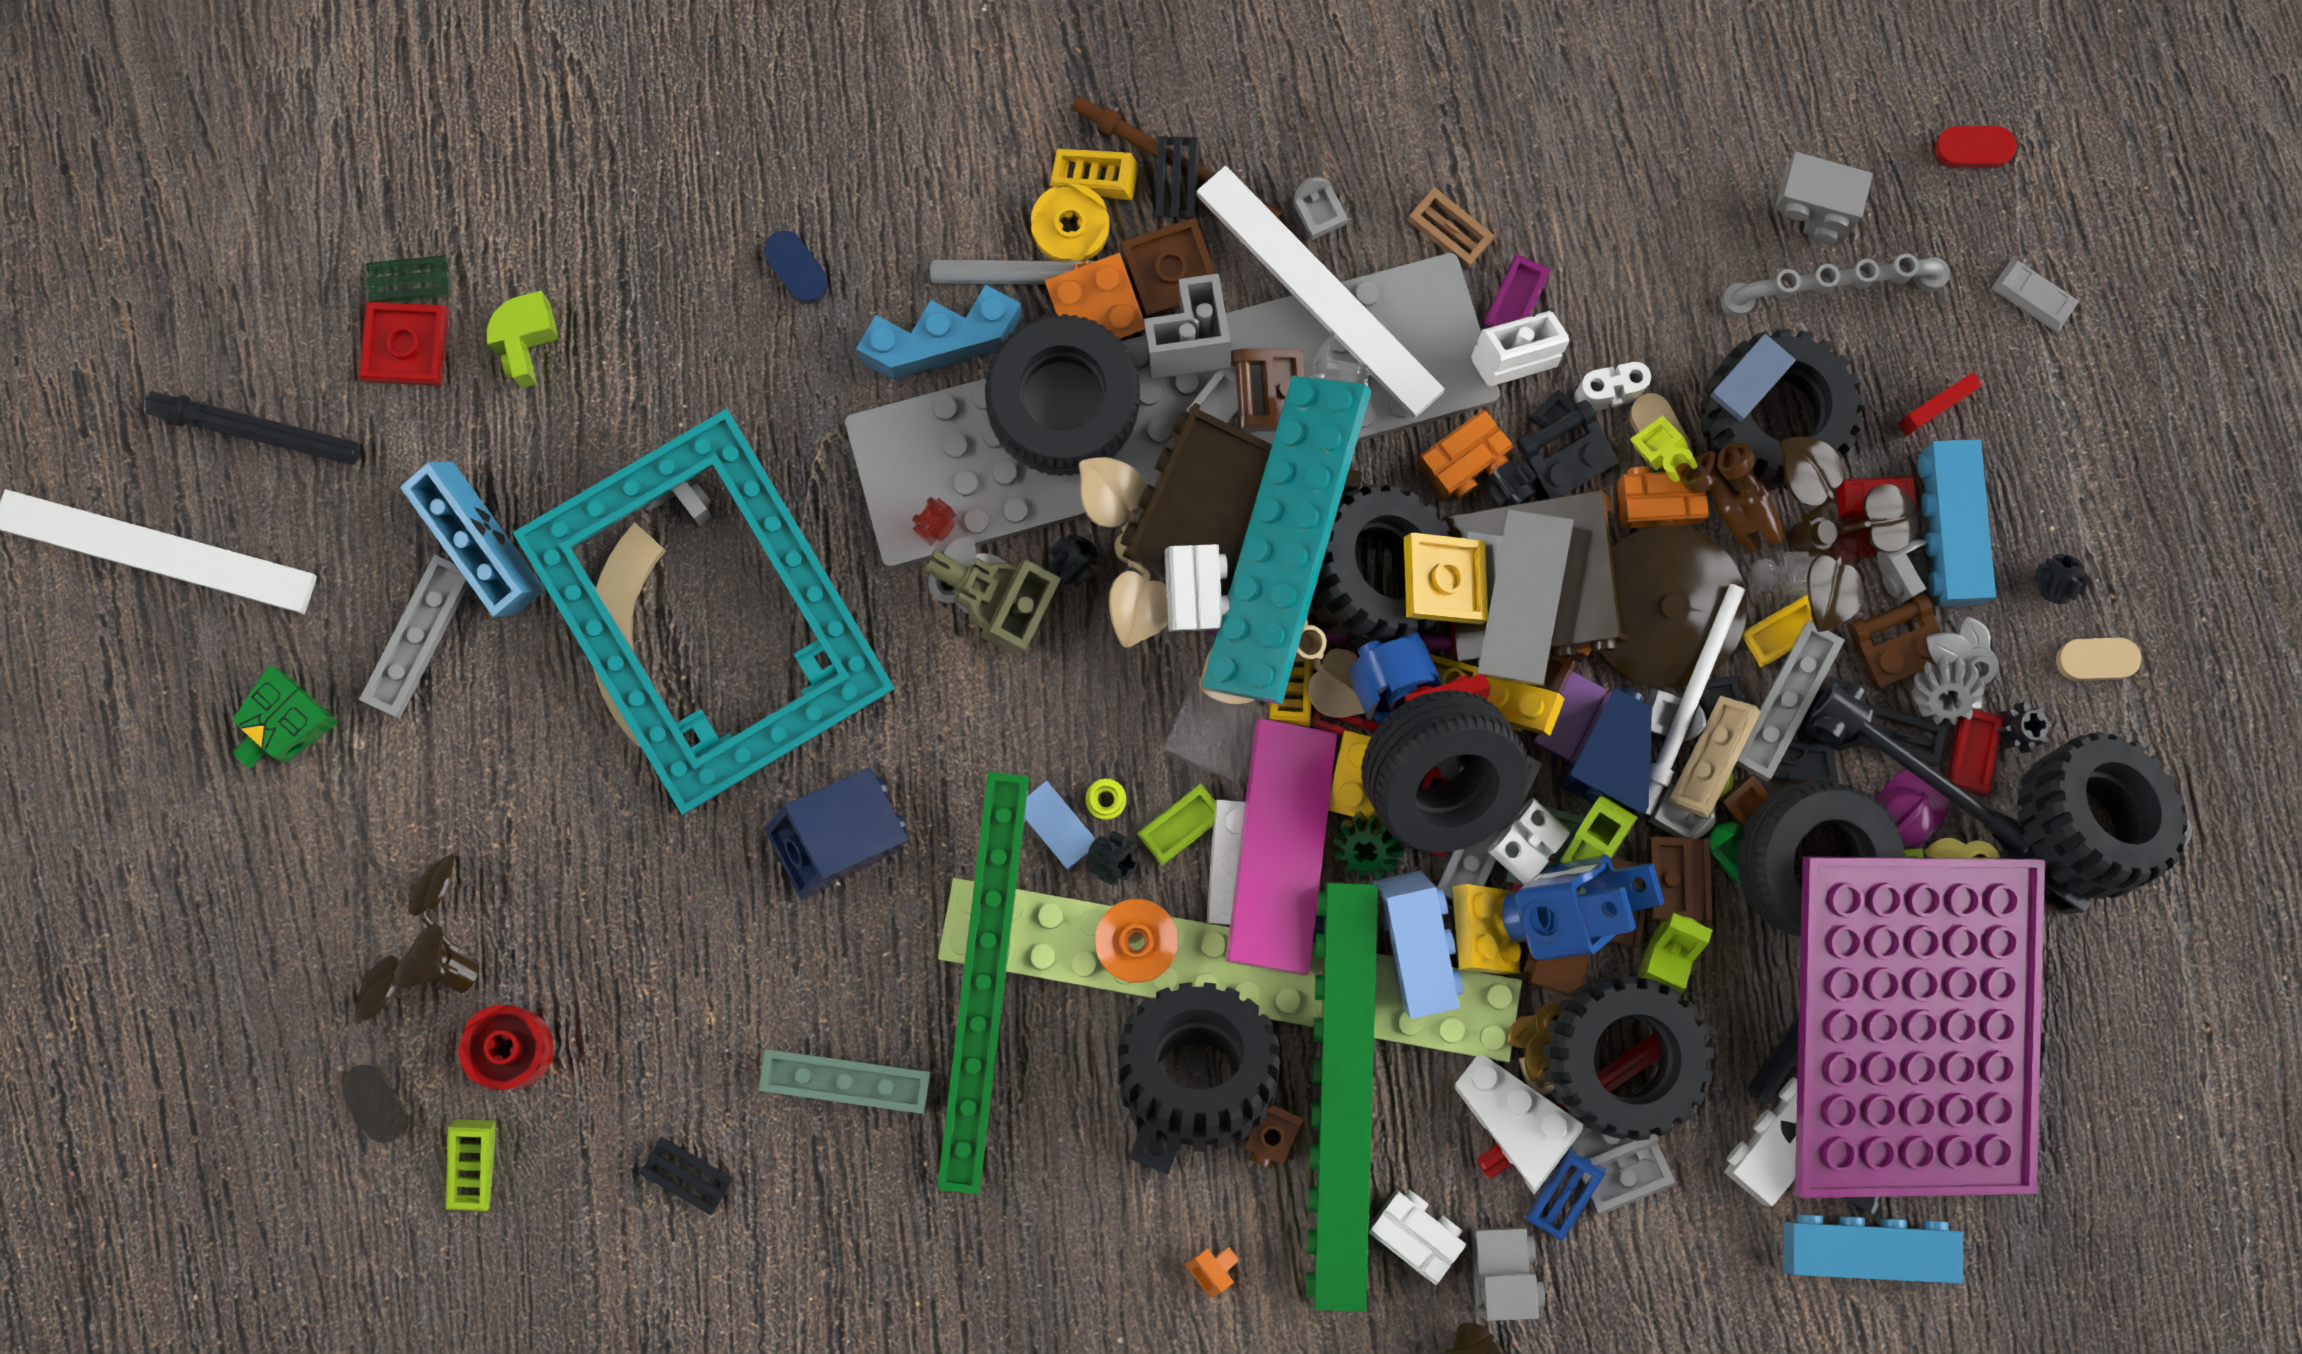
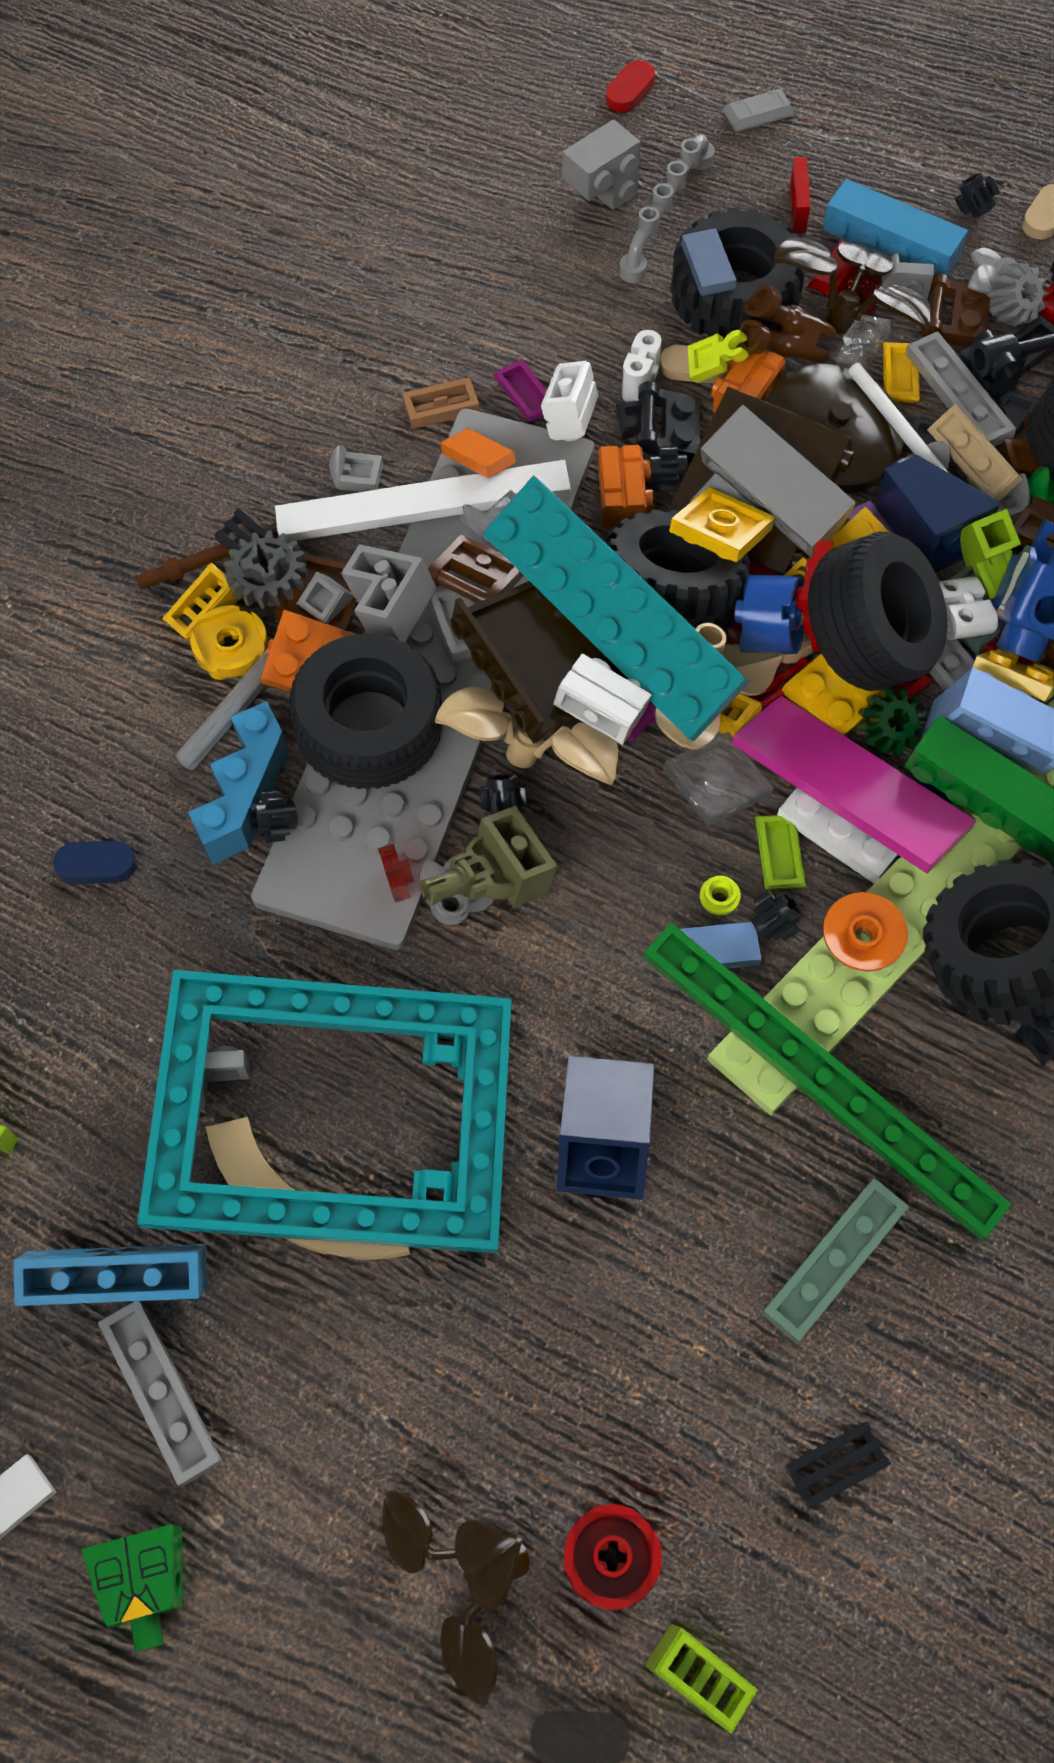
camera: 50 degrees left, 15 degrees down
(919, 386) = (273, 816): none -> black gear
(1148, 190) = (247, 572): none -> dark grey gear
(1161, 275) = (324, 598): none -> light grey slope
(1401, 305) = (478, 453): none -> orange tile

